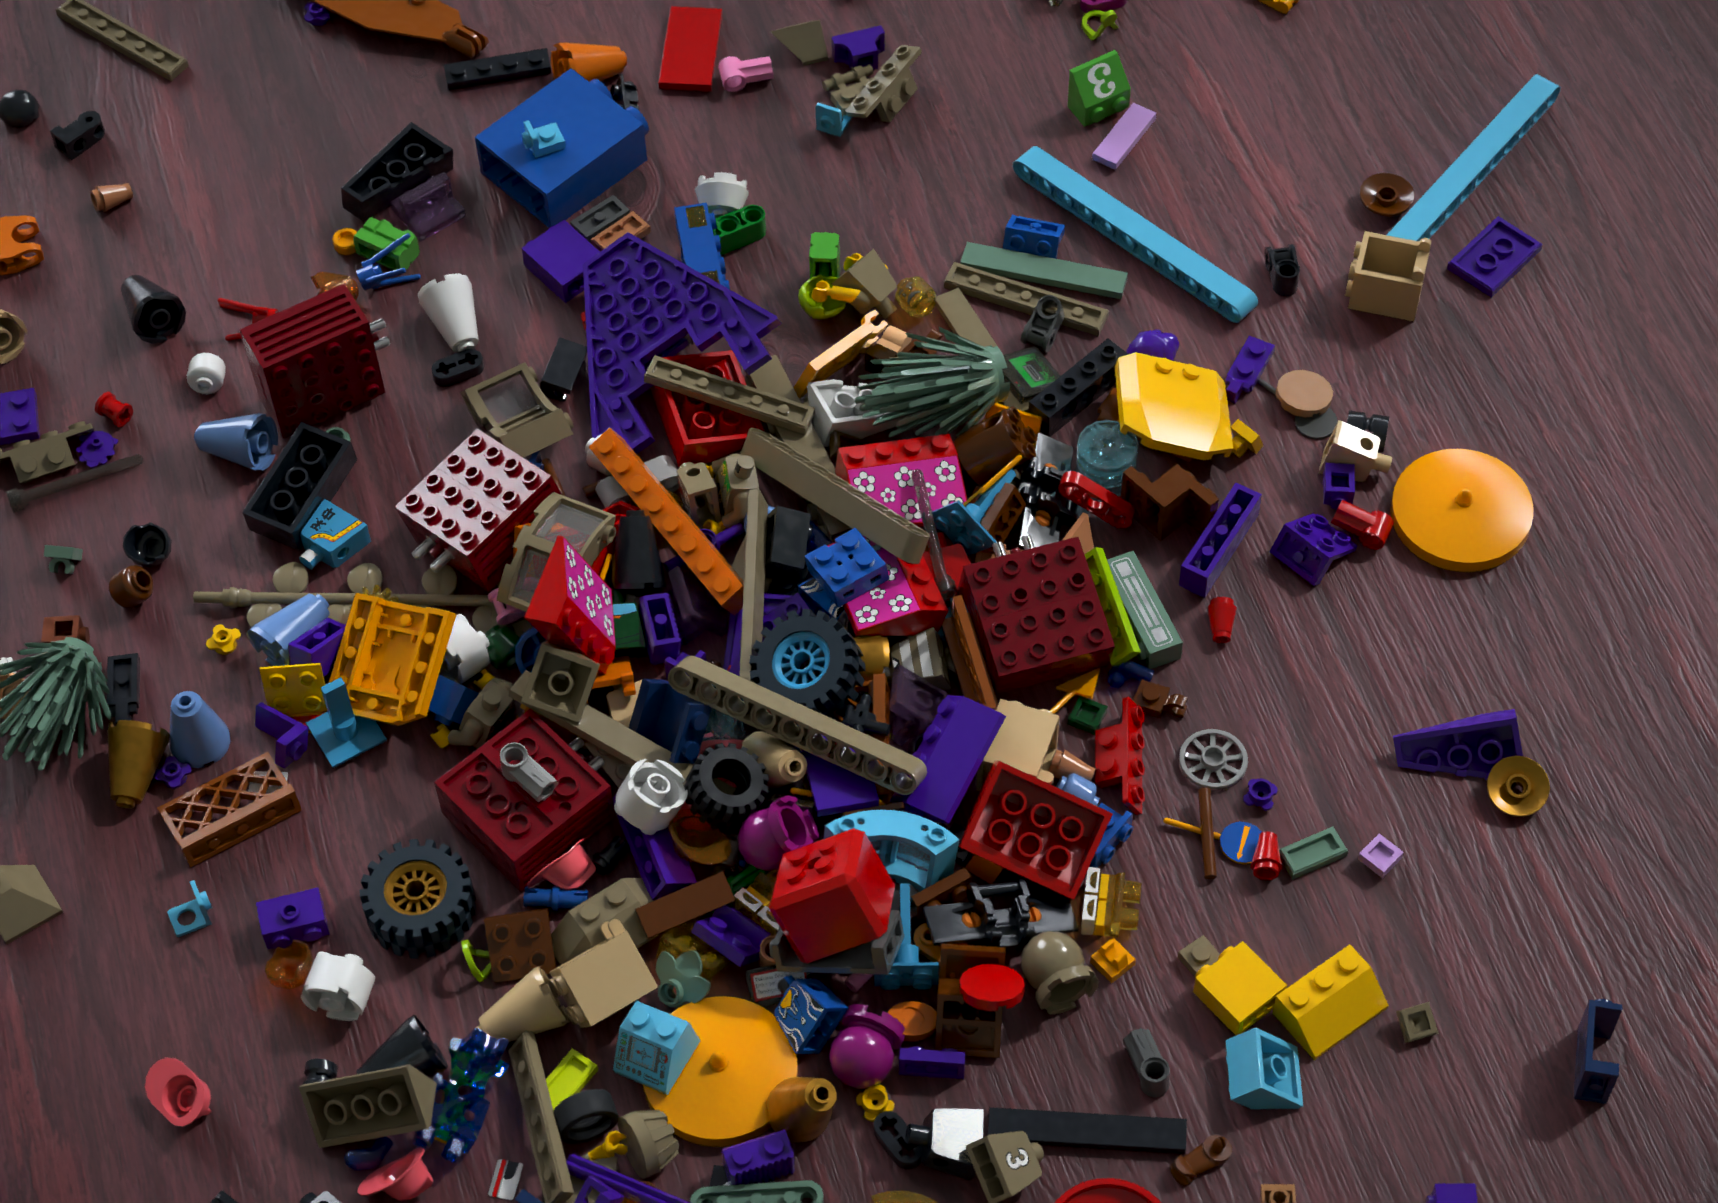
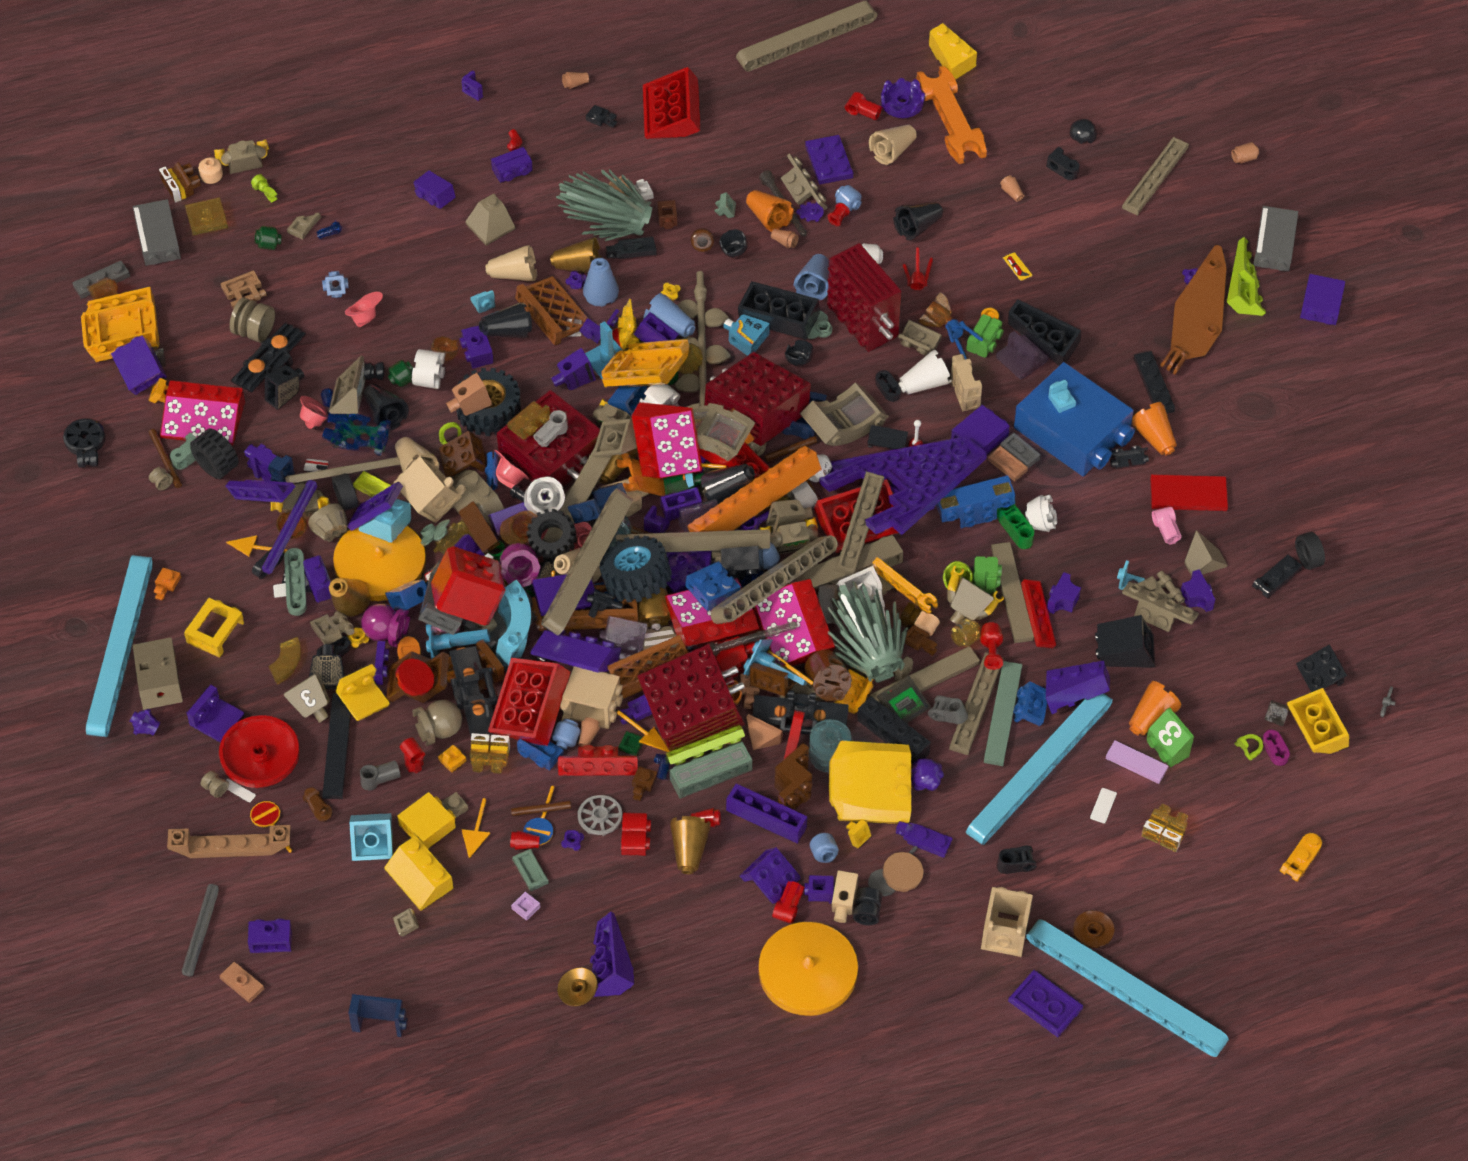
camera: 85 degrees right, 0 degrees up
(84, 391) = (849, 197): none -> medium blue head
(85, 495) = (770, 209): none -> orange cone
(116, 1143) = (332, 290): none -> medium blue brick
(131, 856) = (514, 265): none -> tan cone
(147, 478) = (786, 238): none -> nougat cone
(255, 205) = (1017, 266): none -> yellow sticker
(260, 856) = (507, 322): none -> black cone
(332, 1035) = (400, 373): none -> dark green head
(374, 769) = (574, 371): none -> dark purple torso
(383, 467) = (799, 353): none -> black hair
(389, 310) = (920, 338): none -> dark tan bracket
(433, 899) = (469, 396): none -> nougat torso
(483, 263) = (966, 388): none -> tan hips
(500, 807) = (529, 420): none -> clear yellow bracket
(571, 334) = (916, 441): none -> white hinge
(632, 1057) = (375, 506): none -> dark purple tile
(854, 187) = (1063, 595): none -> dark purple brick
(865, 1144) = (330, 628): none -> dark tan plate
(883, 218) = (1038, 614): none -> red tile
(885, 242) = (1013, 594): none -> dark tan tile
(925, 266) = (991, 638): none -> red piece
(942, 125) = (1126, 643): none -> black slope
(997, 1086) = (361, 693): none -> yellow bracket
(1015, 176) = (1074, 683): none -> dark purple wedge
(1030, 694) = (637, 709): none -> dark purple plate
(1050, 104) = (1151, 707): none -> orange cone
(1123, 1003) = (412, 755): none -> red piece
(1189, 178) = (1103, 805): none -> white sticker
(1231, 111) = (1165, 827): none -> clear yellow hips
(1252, 709) = (634, 834): none -> red brick
(1257, 930) = (475, 838): none -> light orange piece
(1270, 636) = (689, 841): none -> pearl gold cone
(1271, 478) = (824, 847): none -> medium blue head

